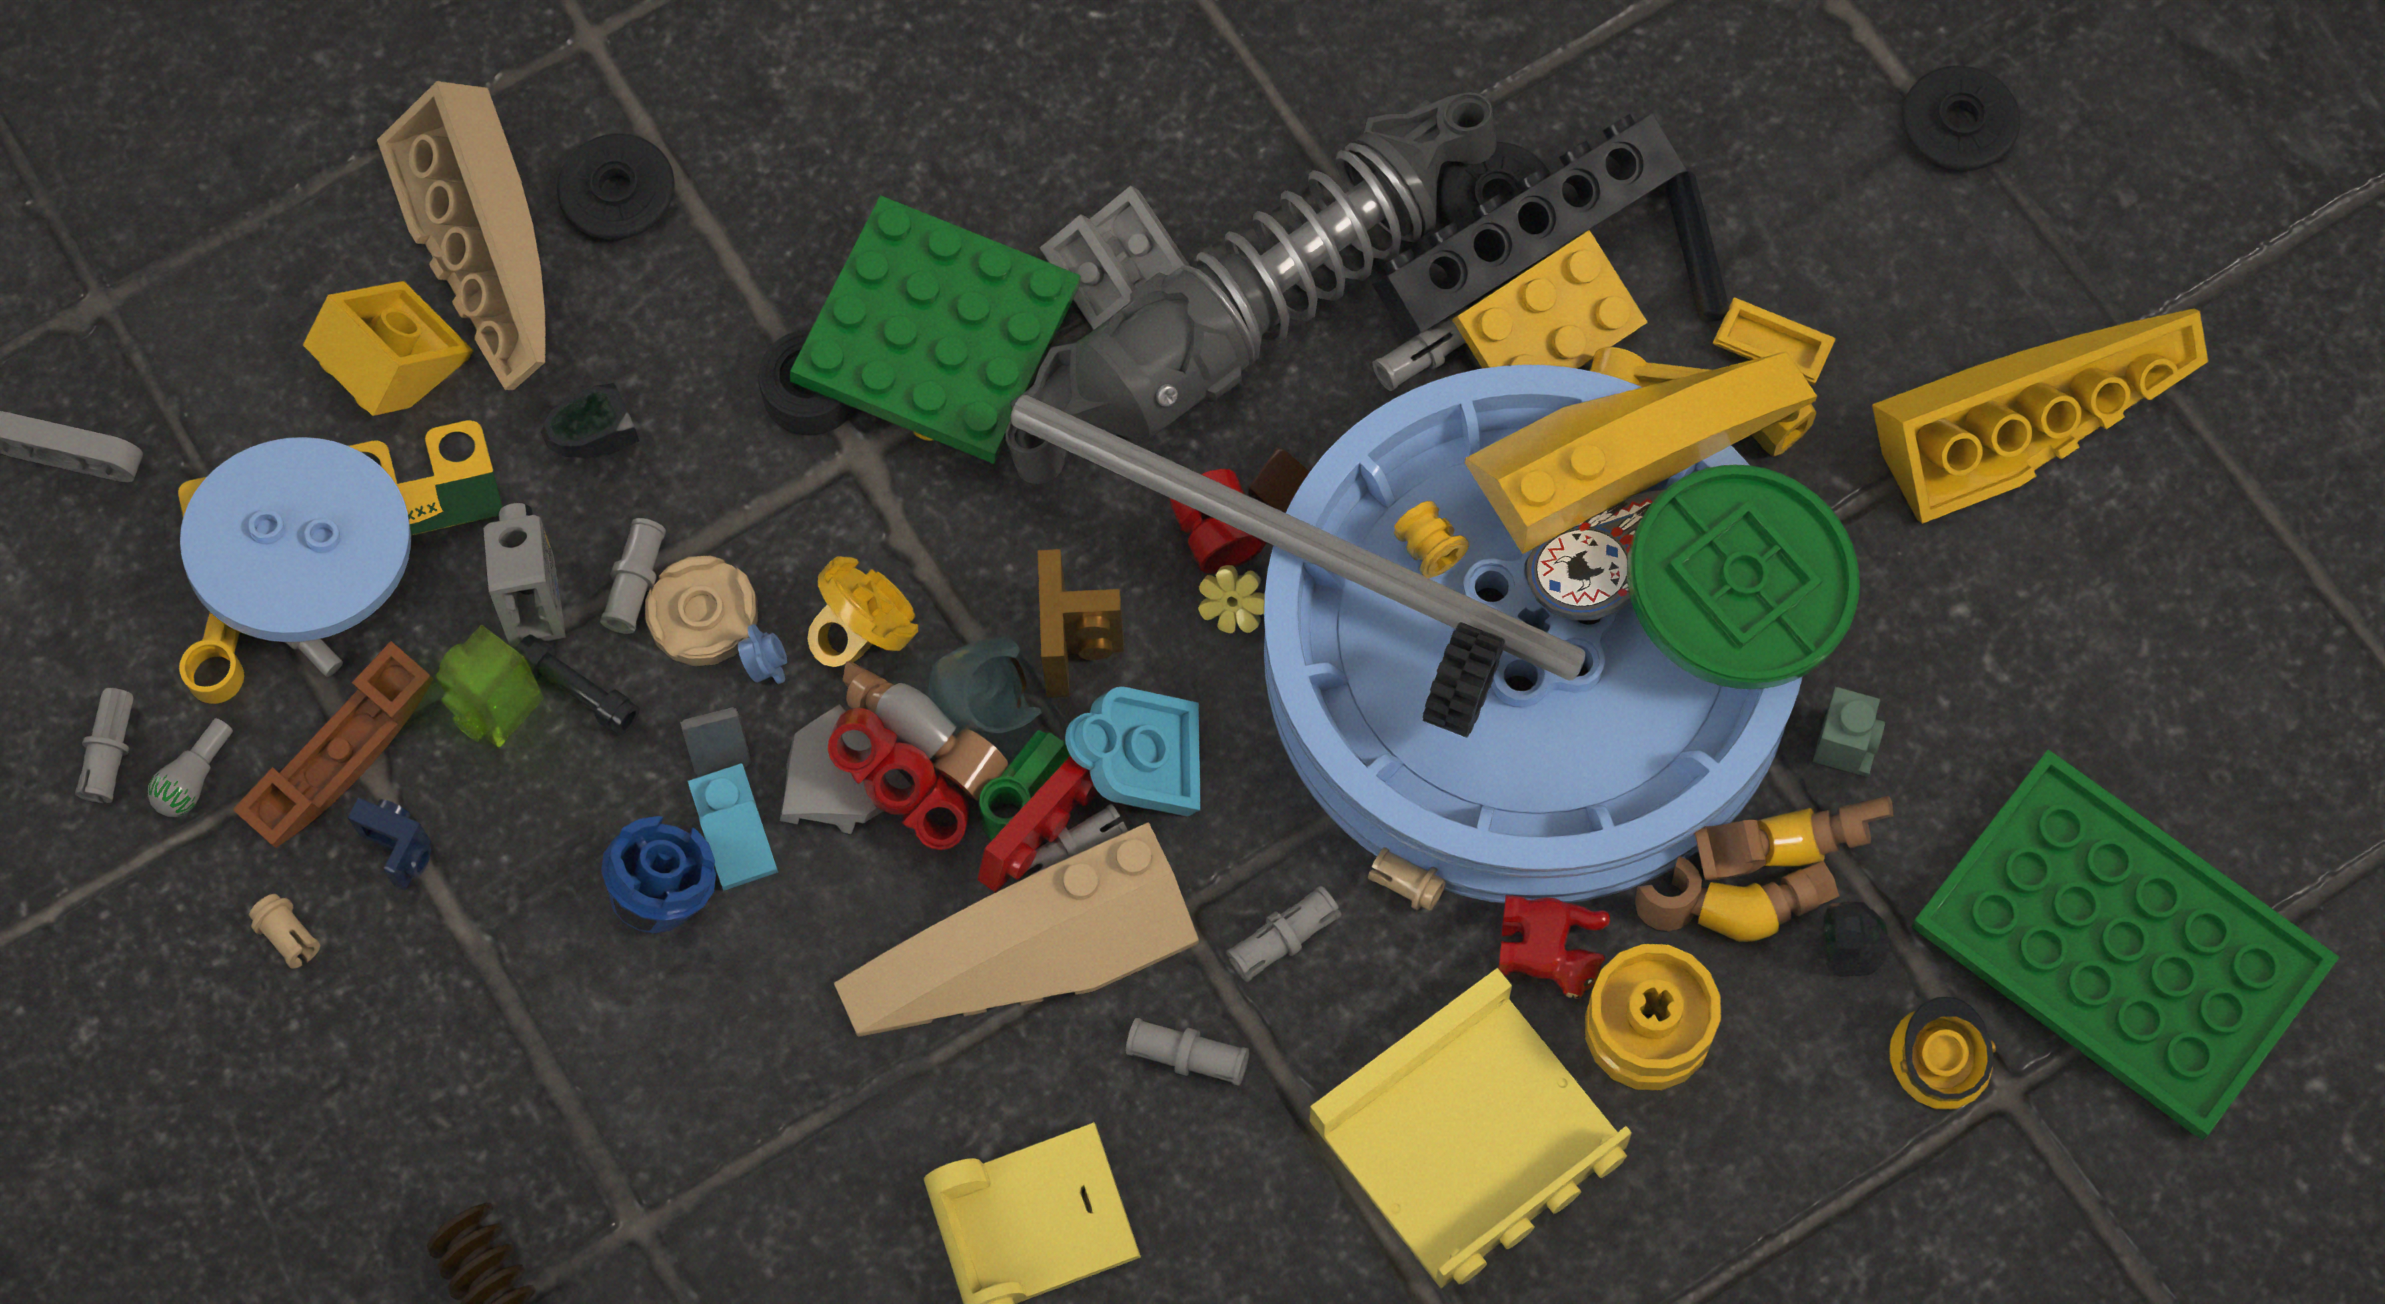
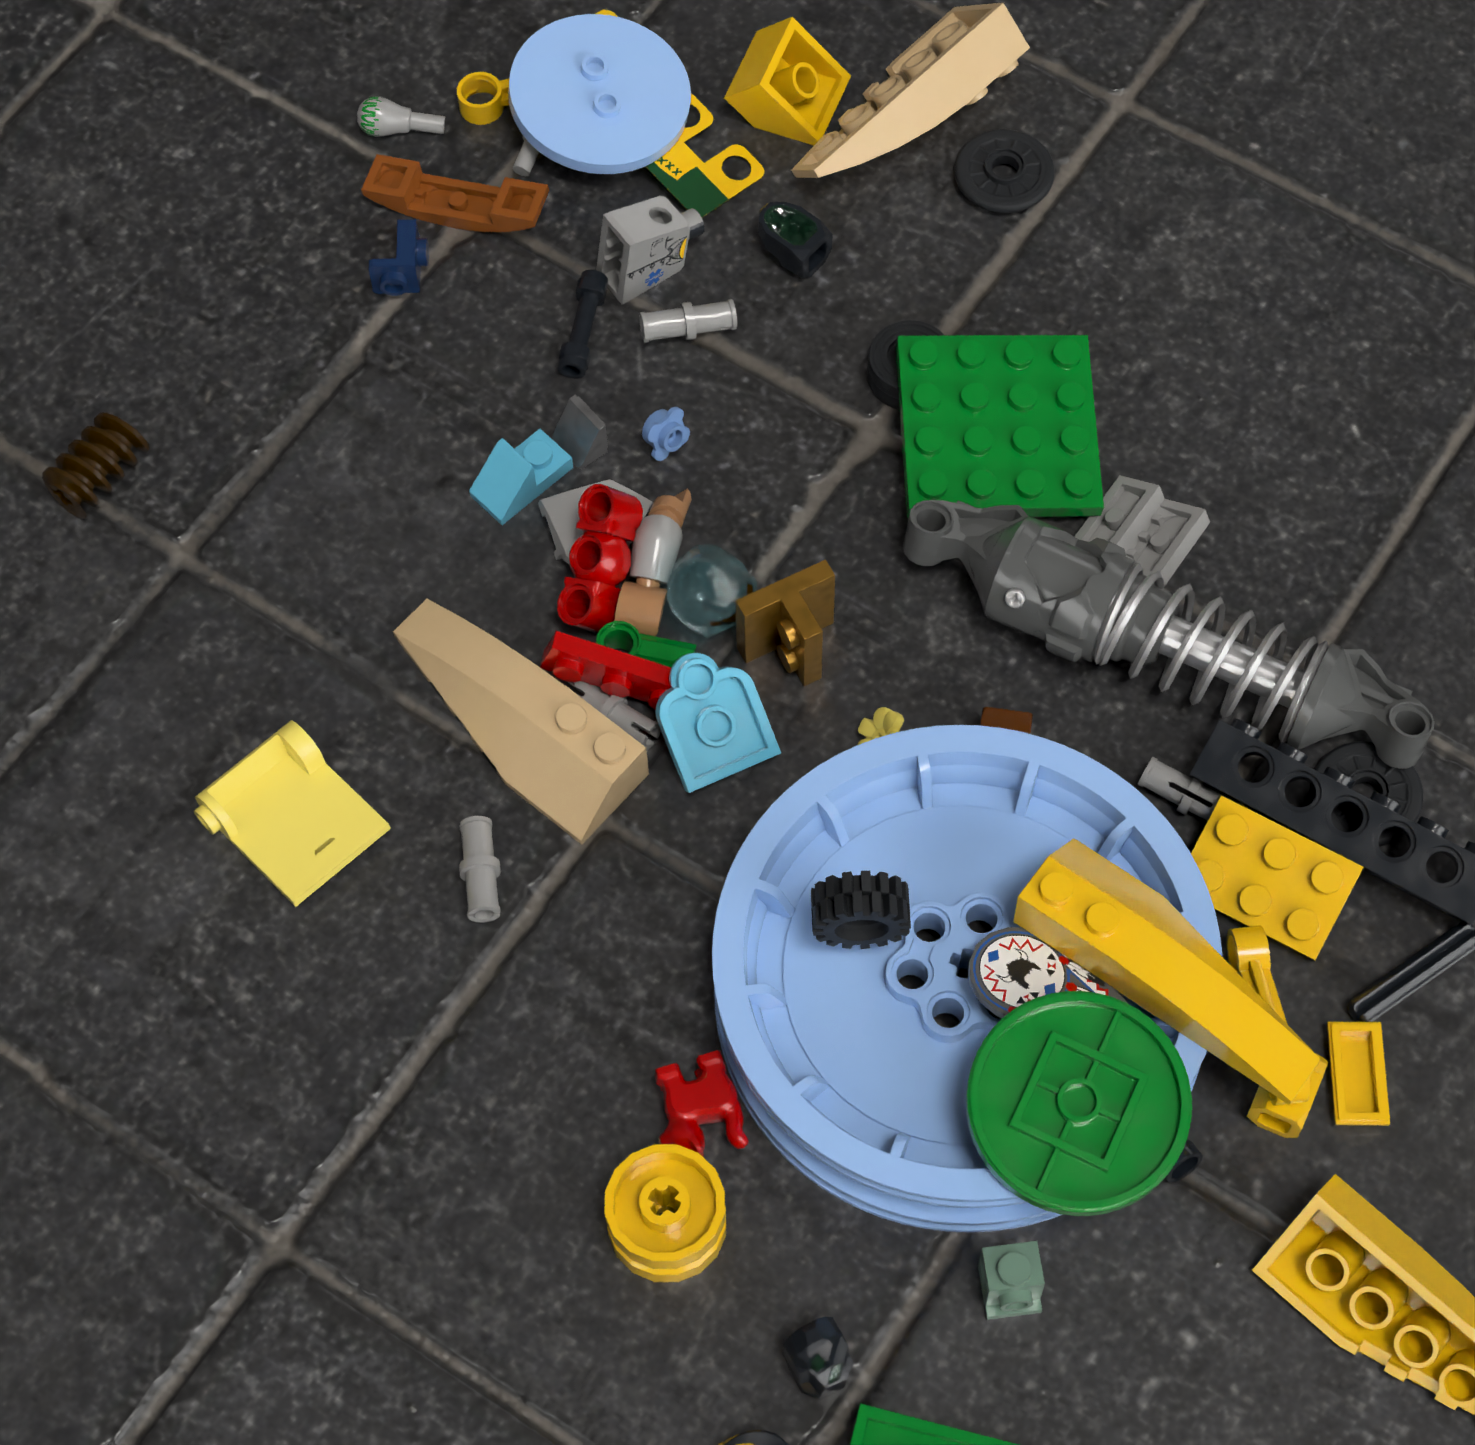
camera: 65 degrees right, 5 degrees down
(105, 747) = (393, 61): light grey axle -> none
(277, 922) = (308, 223): tan pin -> none
(487, 687) = (541, 260): clear neon green brick -> none
(658, 874) = (447, 433): blue cone -> none
(701, 610) = (687, 376): tan tile -> none
(867, 609) = (732, 477): yellow tile -> none
(1212, 540) = (948, 691): red wheel -> none
(1283, 933) = (613, 899): light grey pin -> none
(1294, 535) = (931, 750): light grey axle -> none
(1407, 879) = (700, 984): tan pin -> none
(1430, 539) = (992, 847): yellow bush -> none
(1467, 1132) = (510, 1112): light yellow panel -> none
(1733, 910) = (803, 1258): medium nougat piece -> none
(1786, 839) = (881, 1260): medium nougat piece -> none

